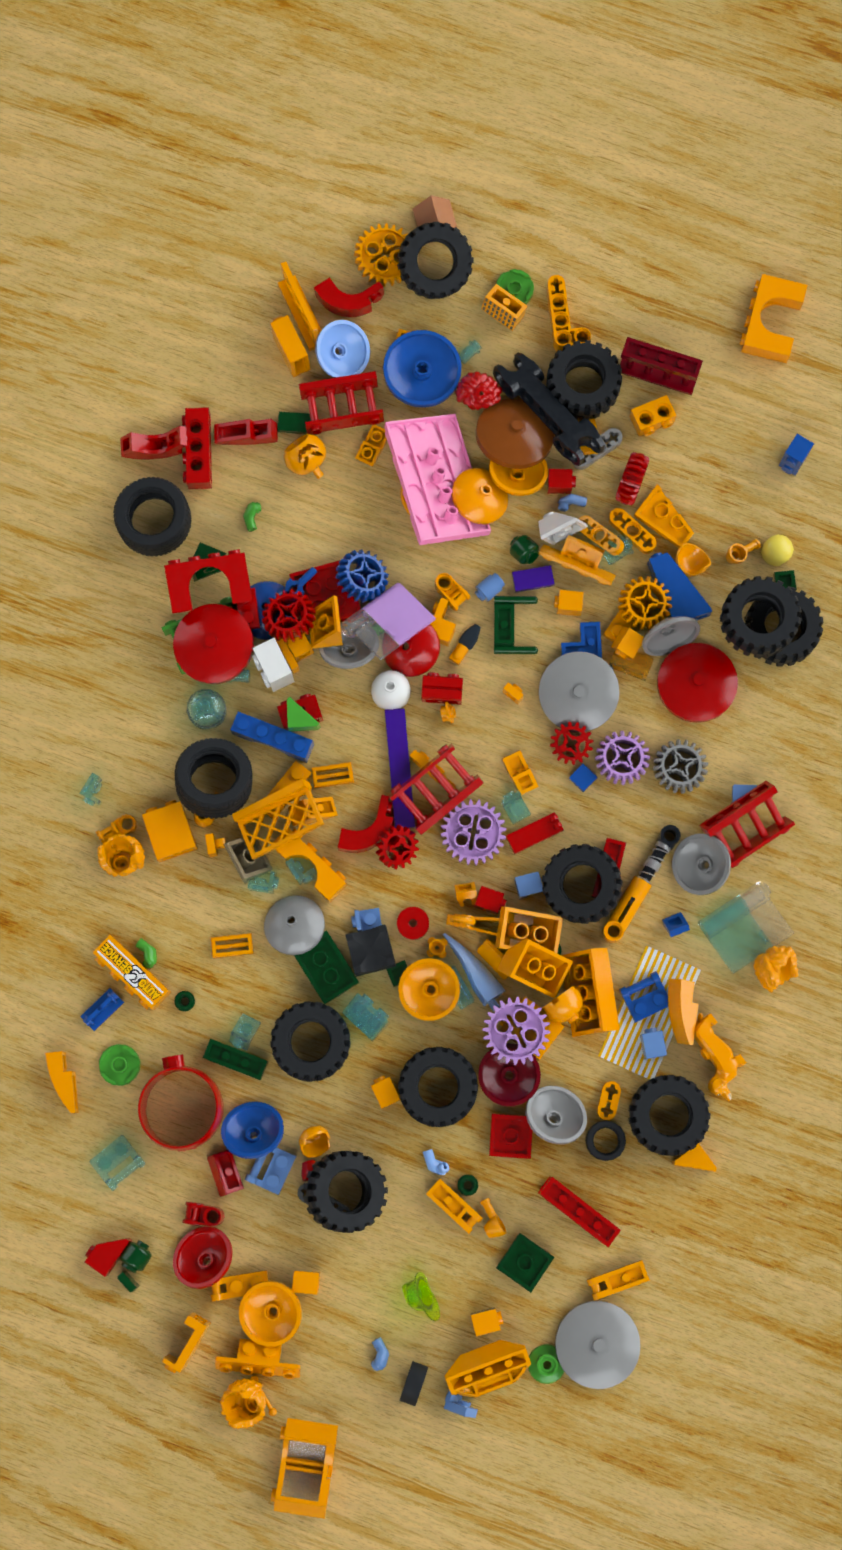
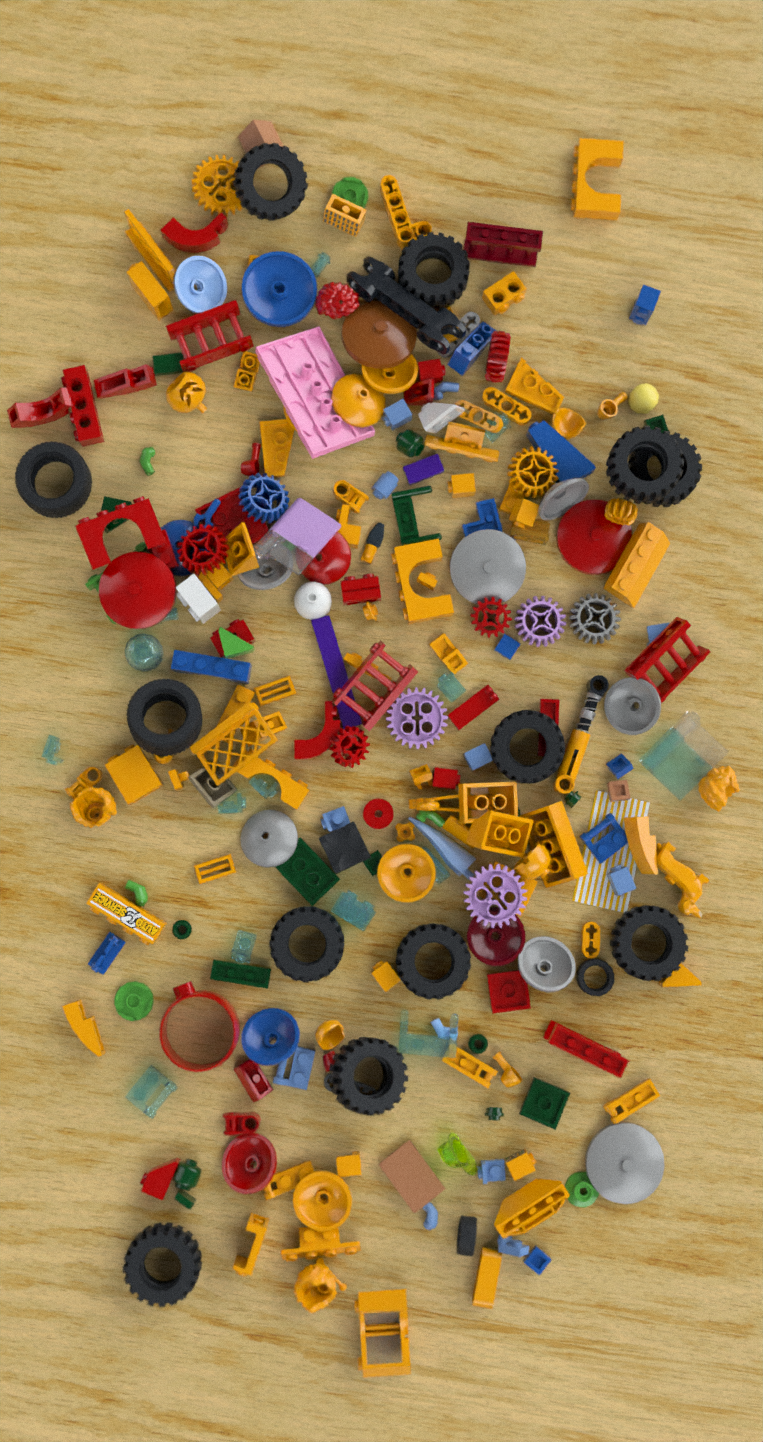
camera: 25 degrees left, 5 degrees up
(61, 1344) = (150, 1288): none -> black tyre
(357, 541) = (251, 466): none -> red bar
(369, 1309) = (412, 1176): none -> nougat tile
(386, 526) = (276, 446): none -> light orange wing
(413, 1173) = (428, 1044): none -> clear light blue plate
(426, 1435) = (486, 1278): none -> light orange beam
(455, 1322) = (491, 1170): none -> medium blue bracket
(468, 935) = (432, 815): none -> bright green arm
(469, 1262) = (494, 1113): none -> dark green plate
(483, 1427) = (537, 1260): none -> blue plate
(498, 719) = (416, 607): none -> light orange arch
(516, 518) = (396, 415): none -> medium blue brick
(544, 500) = (420, 393): none -> red slope
(607, 465) = (471, 348): none -> blue slope
(619, 949) = (572, 798): none -> dark green plate
(669, 950) = (618, 790): none -> nougat plate
(728, 661) = (621, 511): none -> light orange gear
(736, 719) = (637, 563): none -> light orange slope

